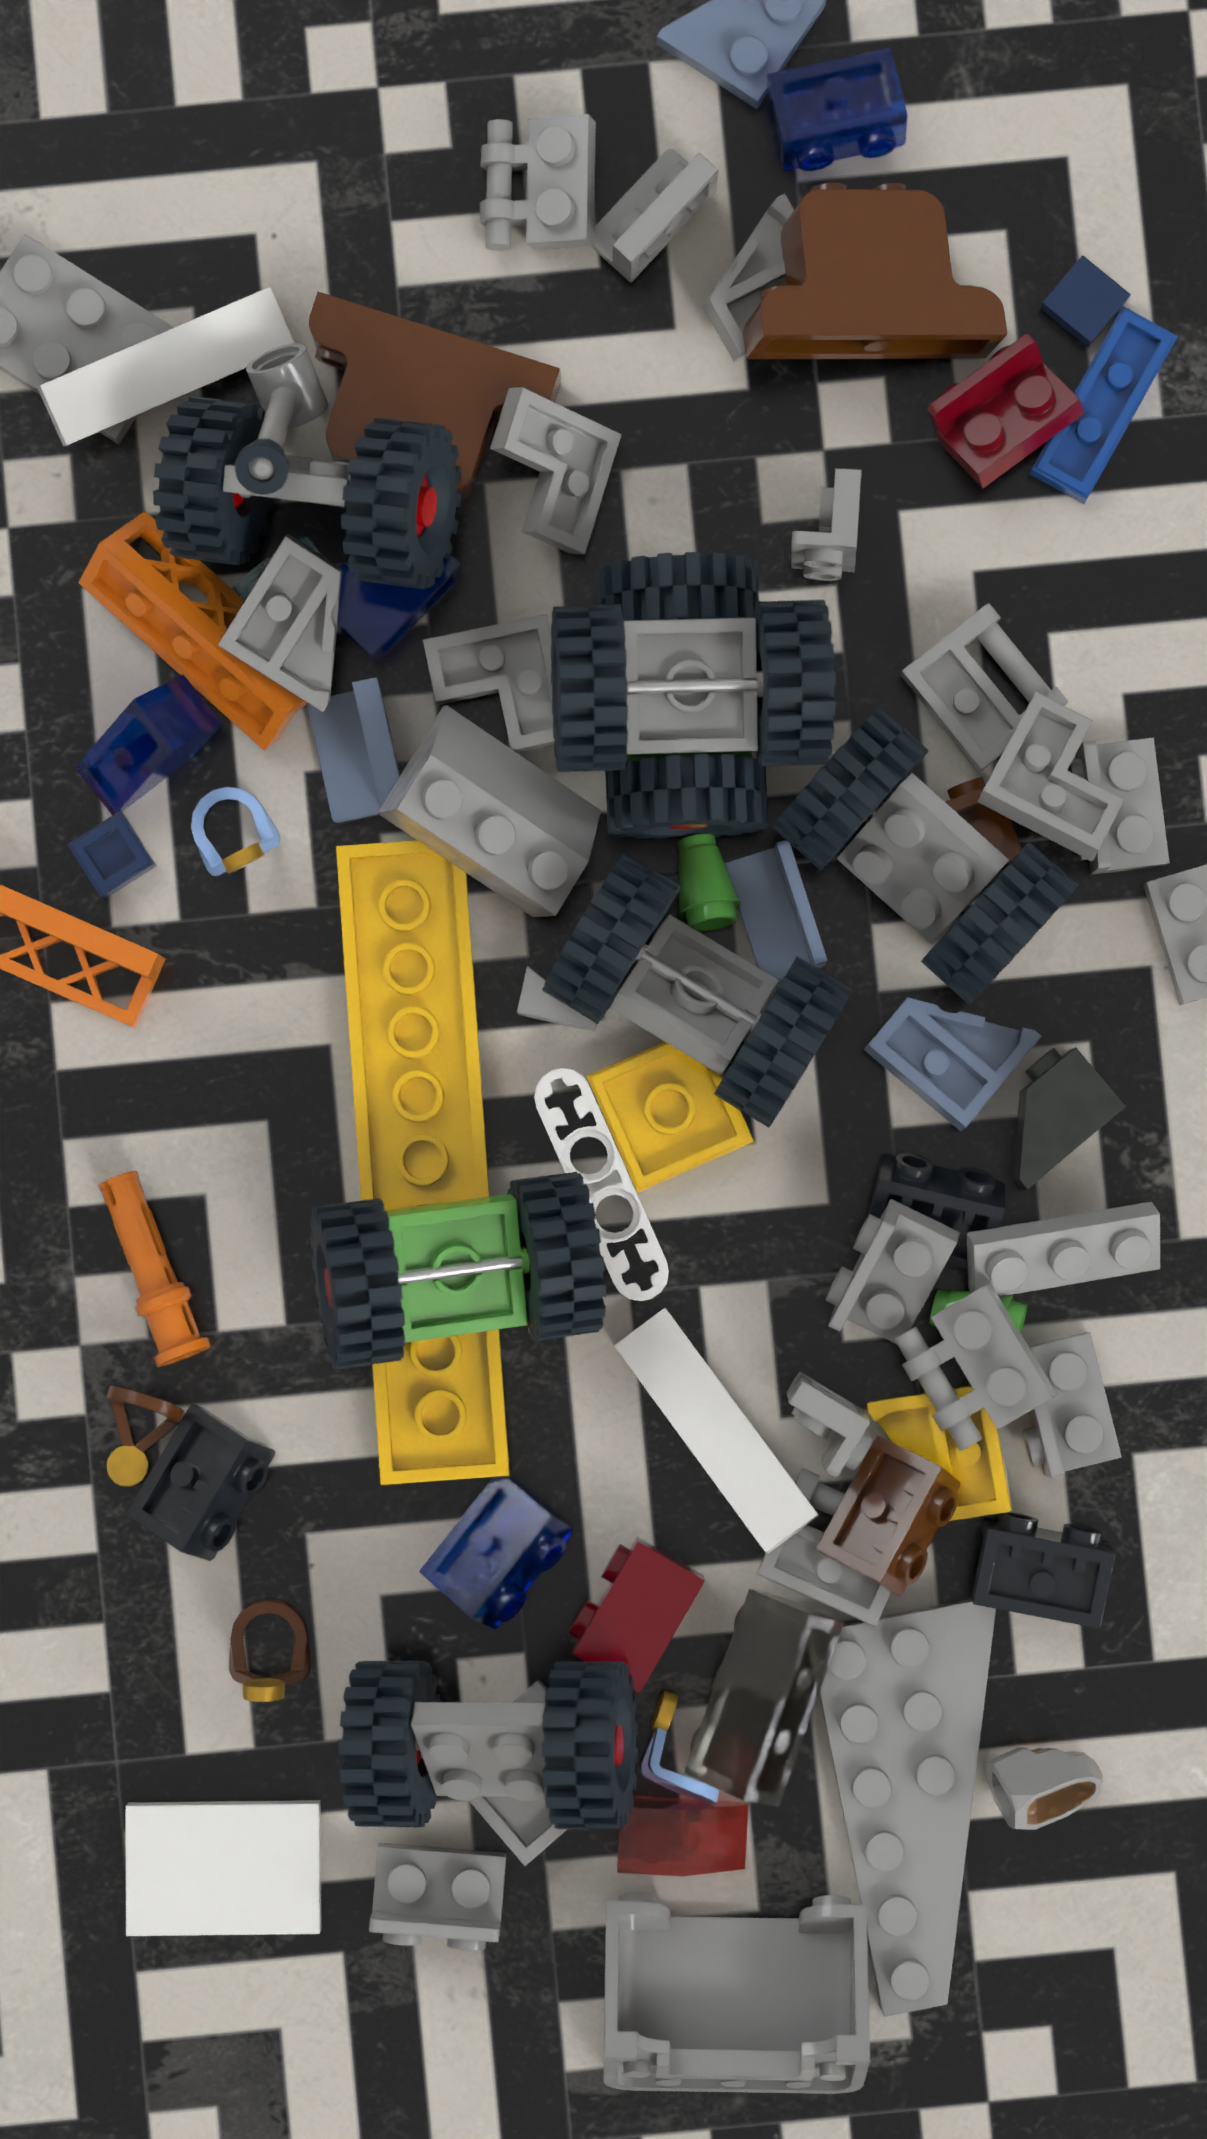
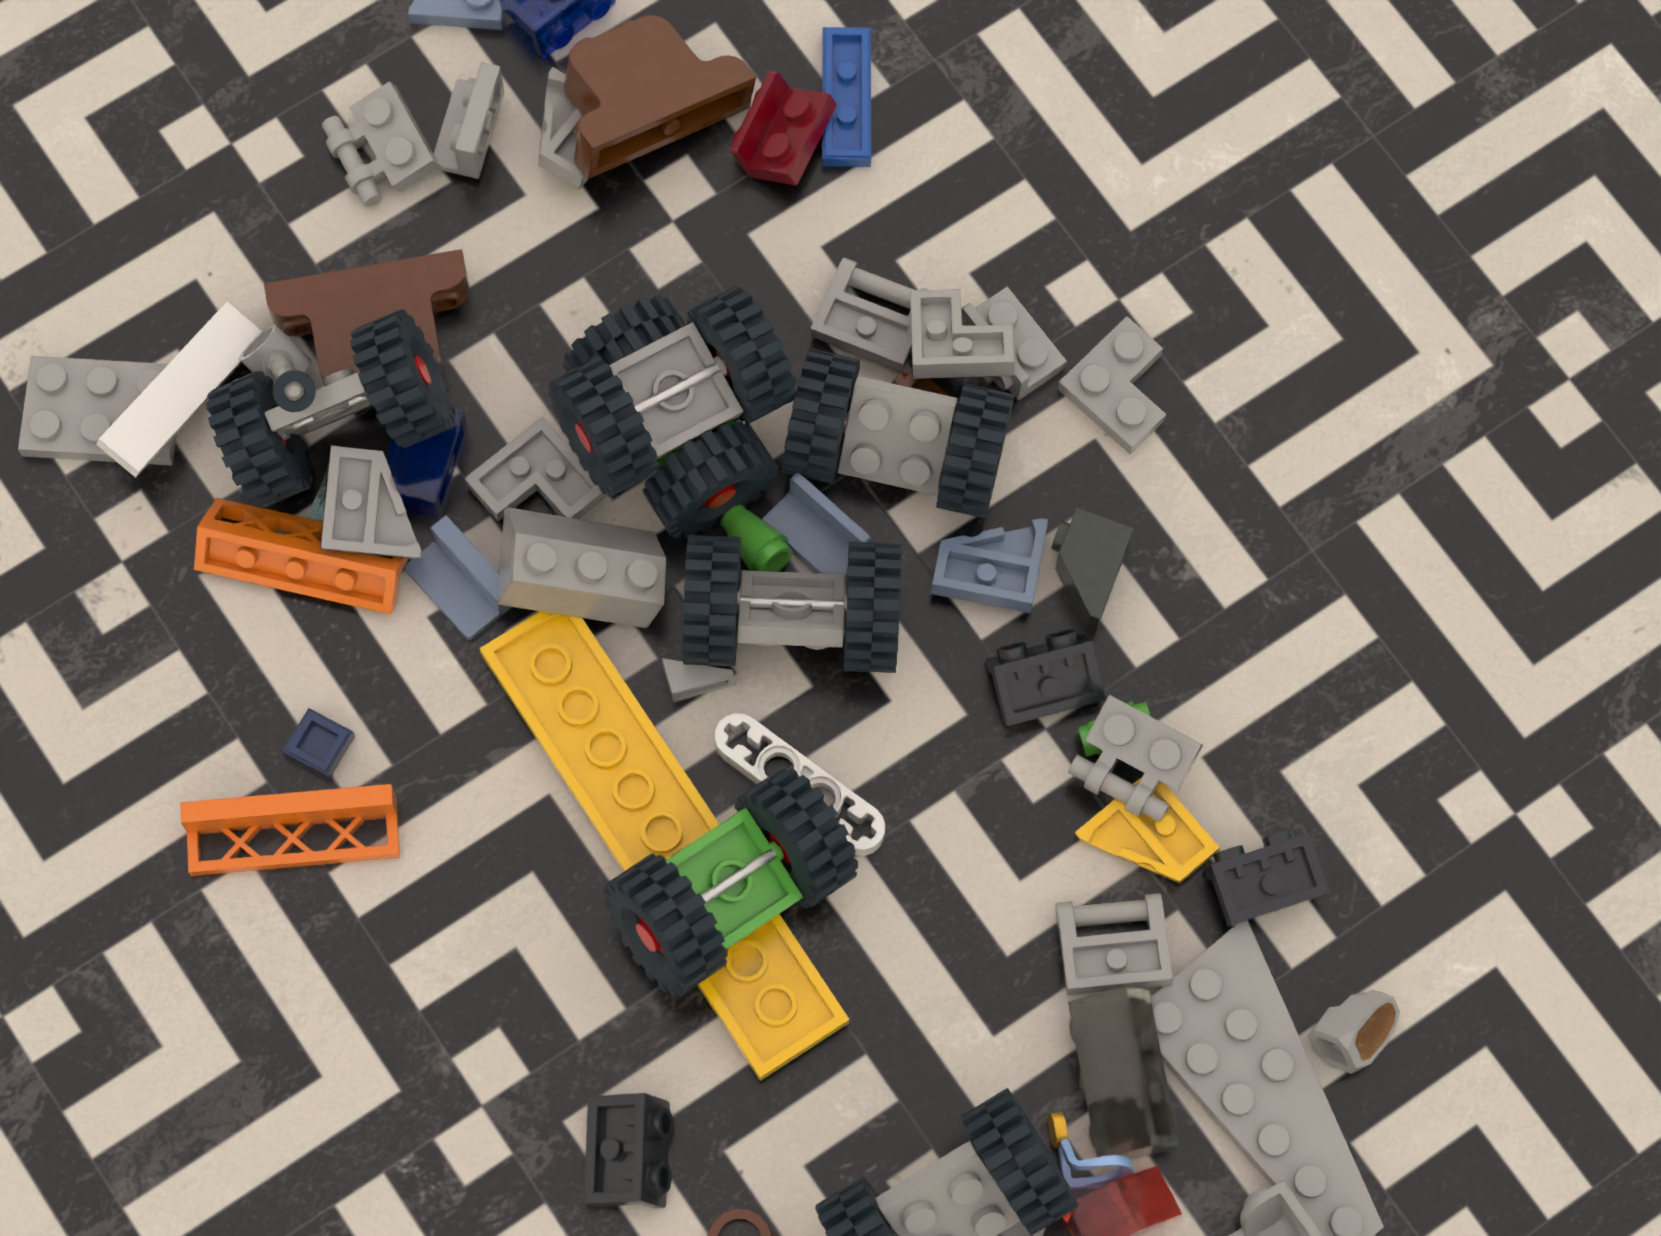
camera: 35 degrees left, 15 degrees down
(128, 1463) = (564, 1169): reddish brown piece -> none
(148, 743) = (304, 650): clear blue slope -> none
(161, 1297) = (524, 1031): orange pin -> none
(267, 831) = (411, 694): light blue piece -> none
(497, 1552) = (872, 1080): clear blue bracket -> none
(572, 464) = (505, 310): light grey plate -> none
(638, 1610) = (997, 1057): dark red brick -> none
(666, 1114) = (819, 706): yellow tile -> none
(716, 1431) = (980, 907): white tile -> none
(825, 1411) = (1054, 842): light grey bracket -> none
(834, 547) = (714, 258): light grey bracket -> none
(890, 1516) = (1137, 891): reddish brown bracket -> none
(894, 1272) = (1040, 729): light grey bracket -> none
(1065, 1250) = (1150, 650): light grey plate -> none
(1077, 1423) = (1225, 768): light grey bracket -> none
(1085, 301) = (795, 37): dark blue tile -> none

